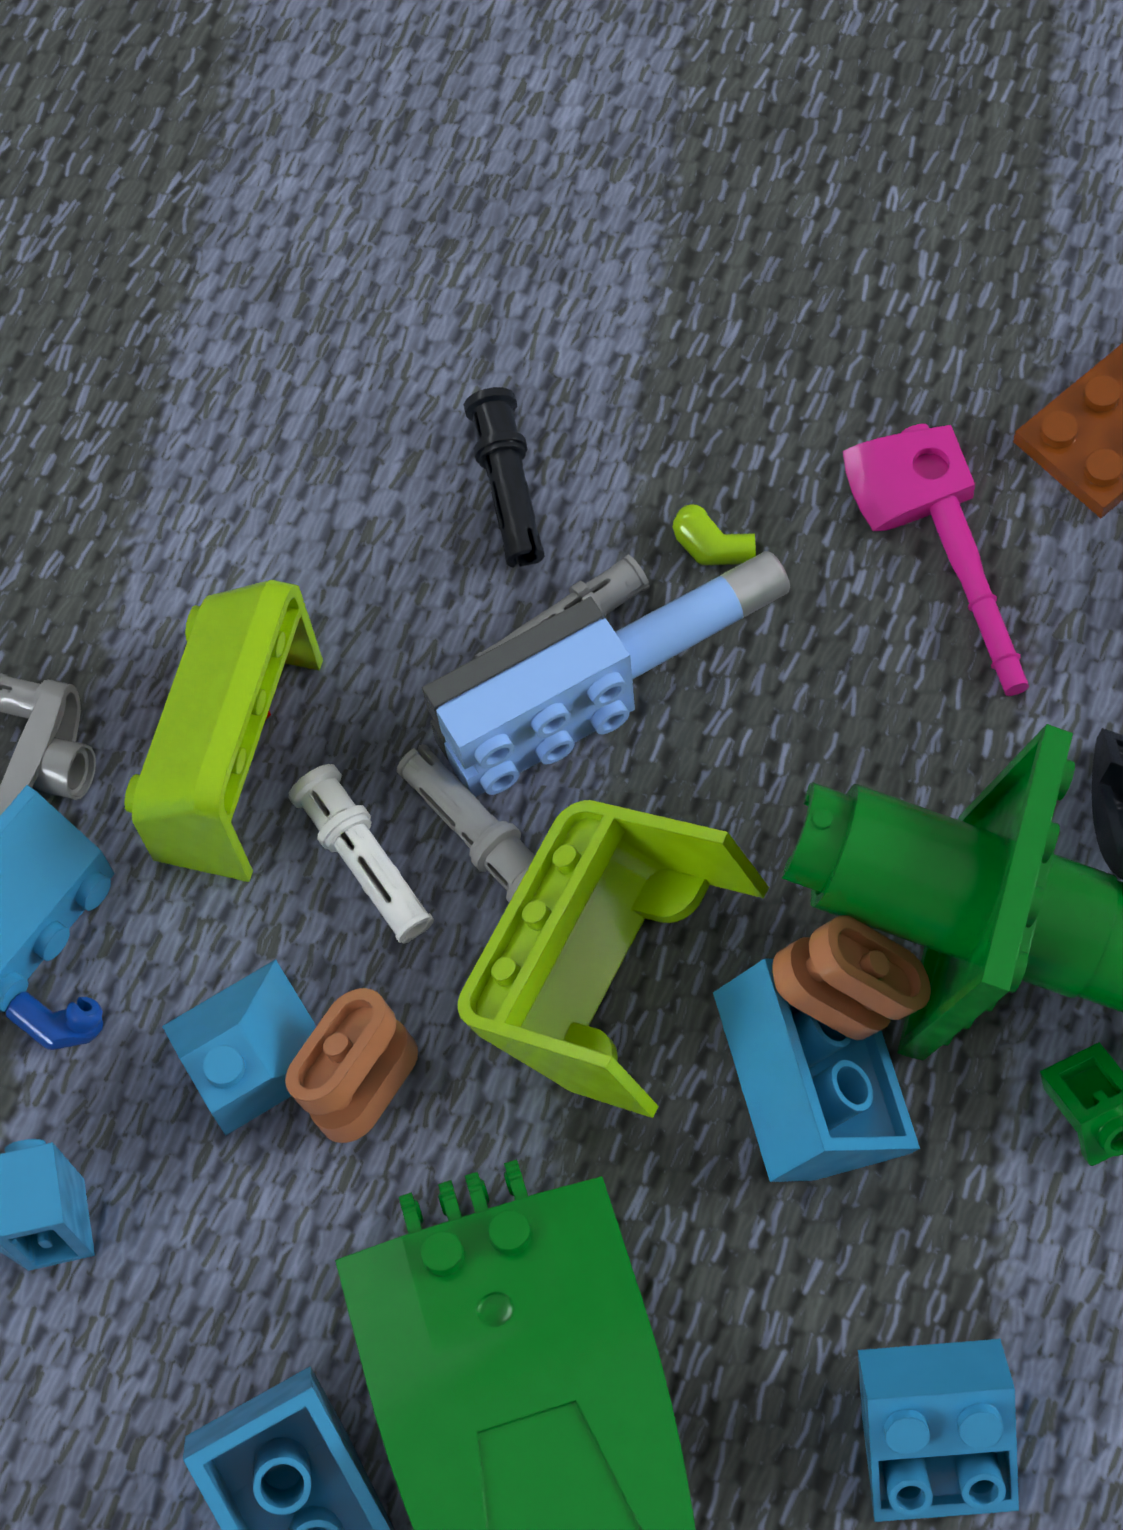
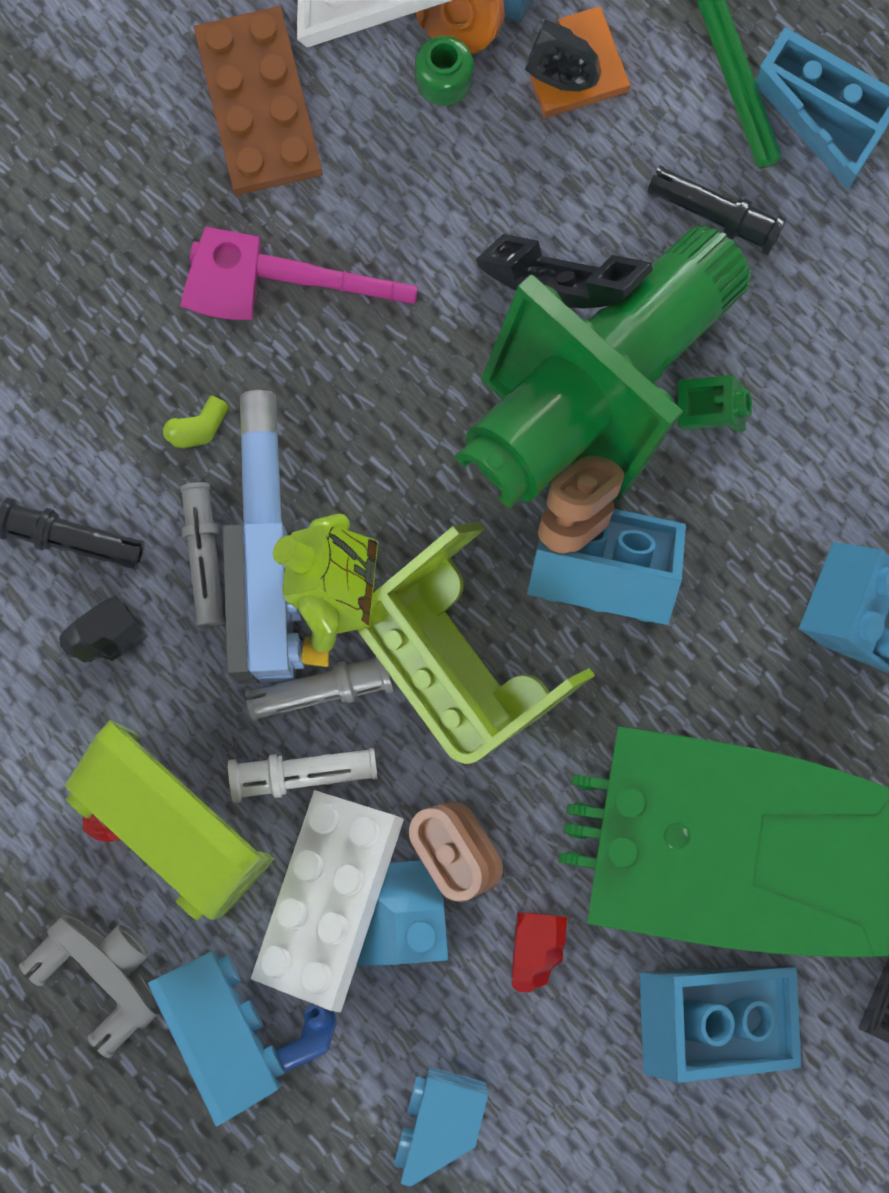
camera: 70 degrees left, 15 degrees up
(224, 953) = (327, 900): none -> white plate
(279, 1224) = (537, 949): none -> red rock
(417, 564) = (103, 632): none -> black rock
(593, 742) = (328, 581): none -> lime torso

